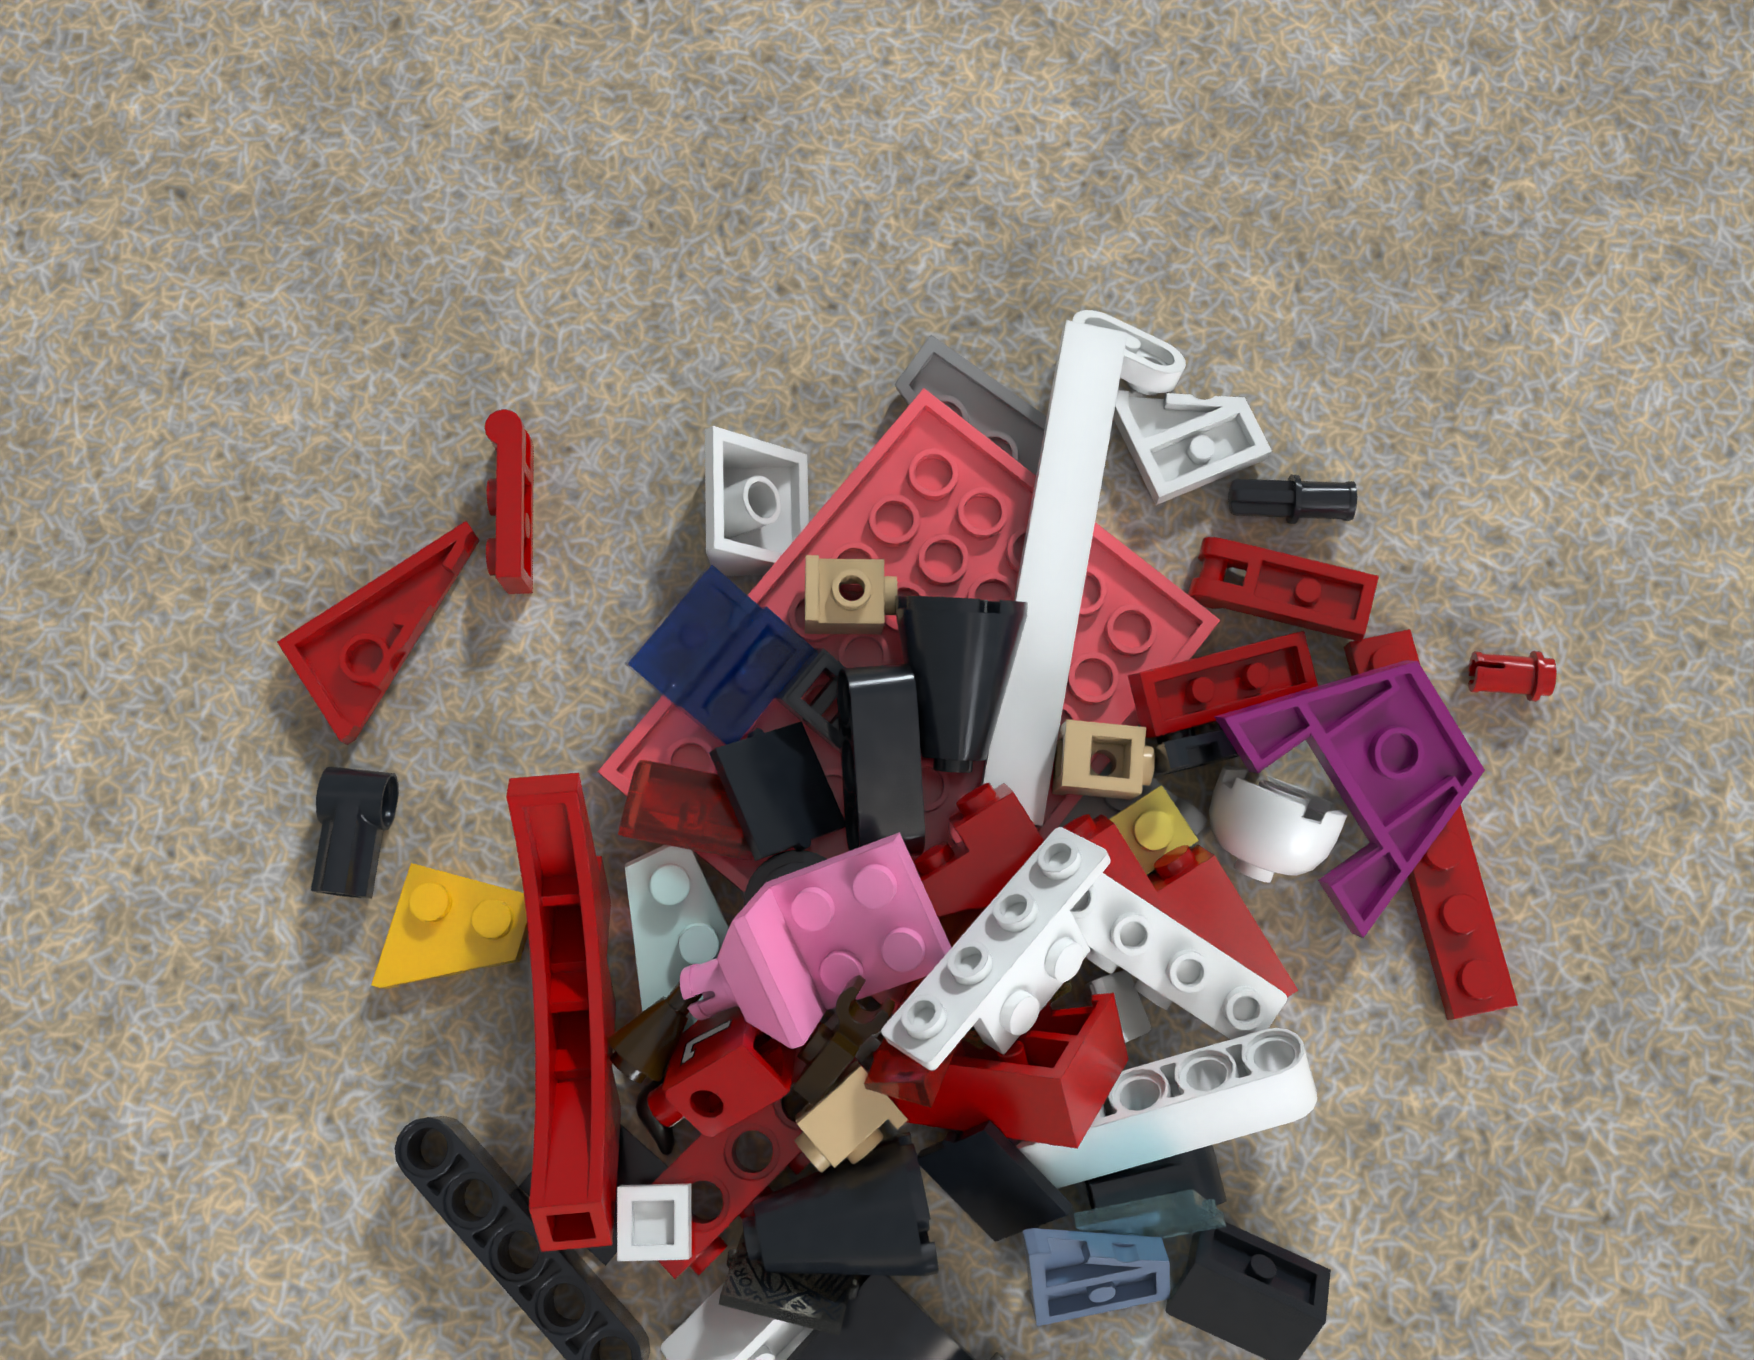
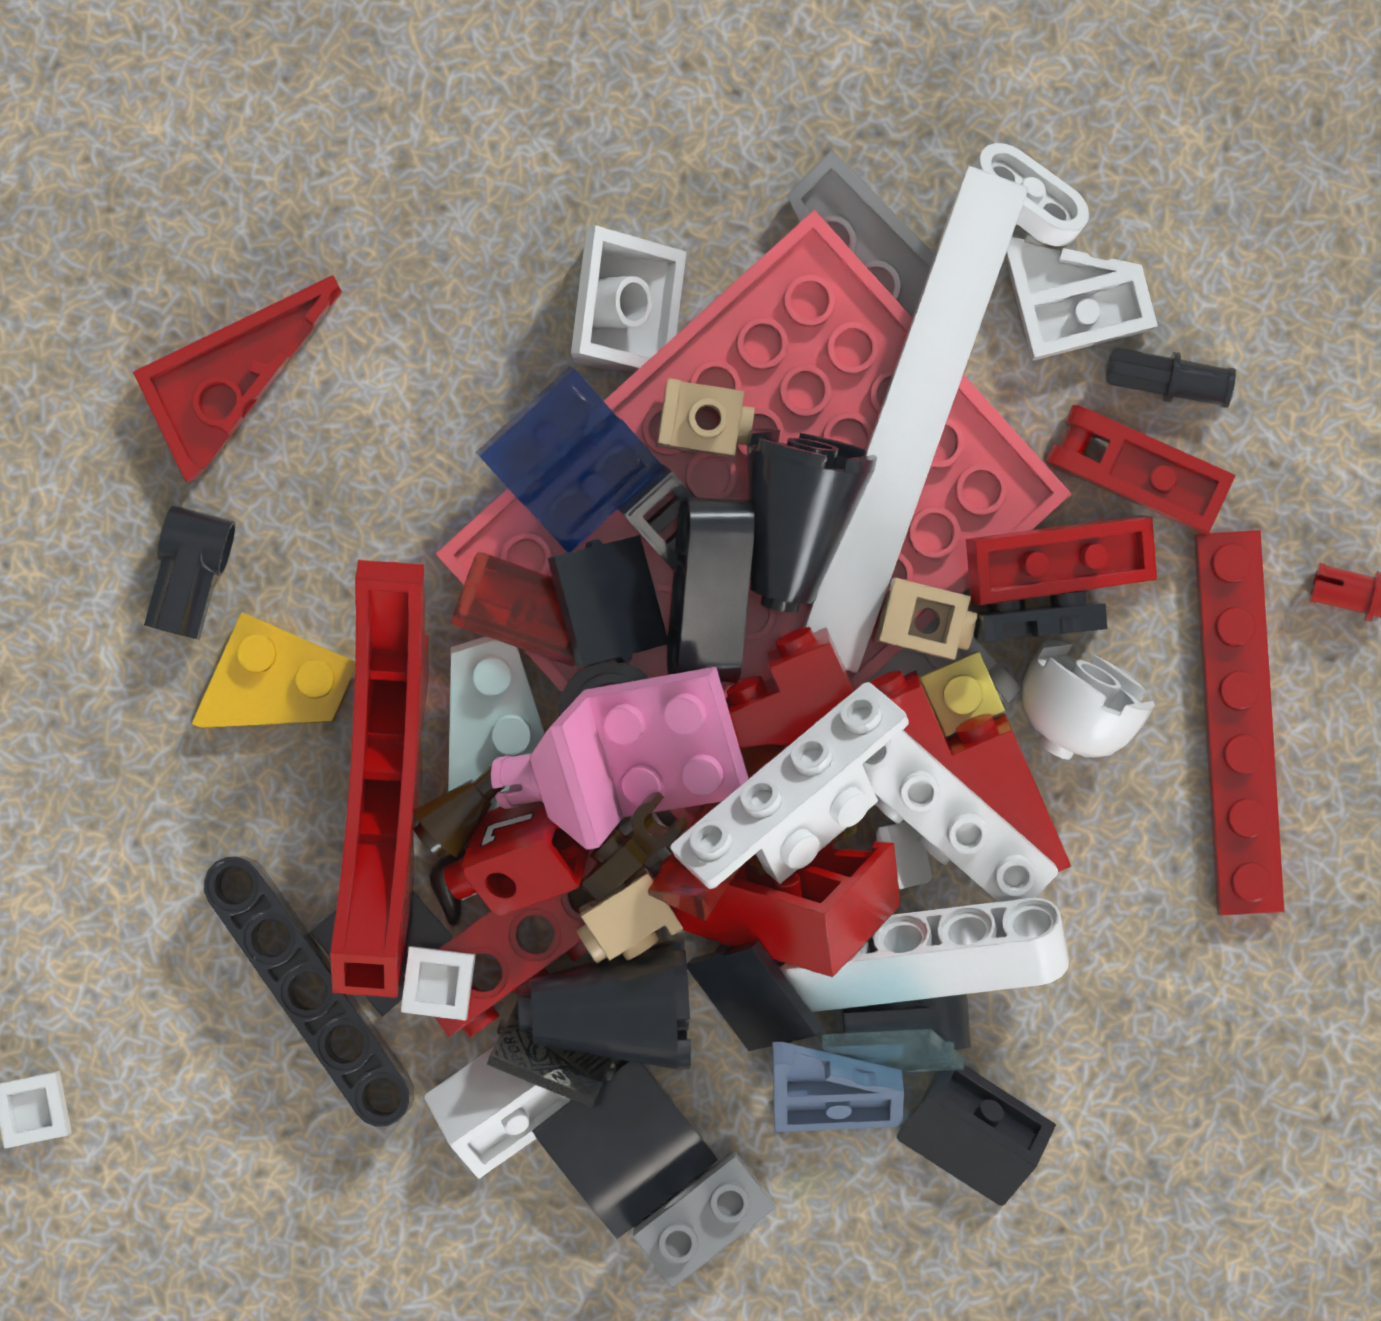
camera: 10 degrees right, 10 degrees up
(511, 501) = (380, 258): red plate -> none
(1389, 758) = (1202, 658): magenta wing -> none

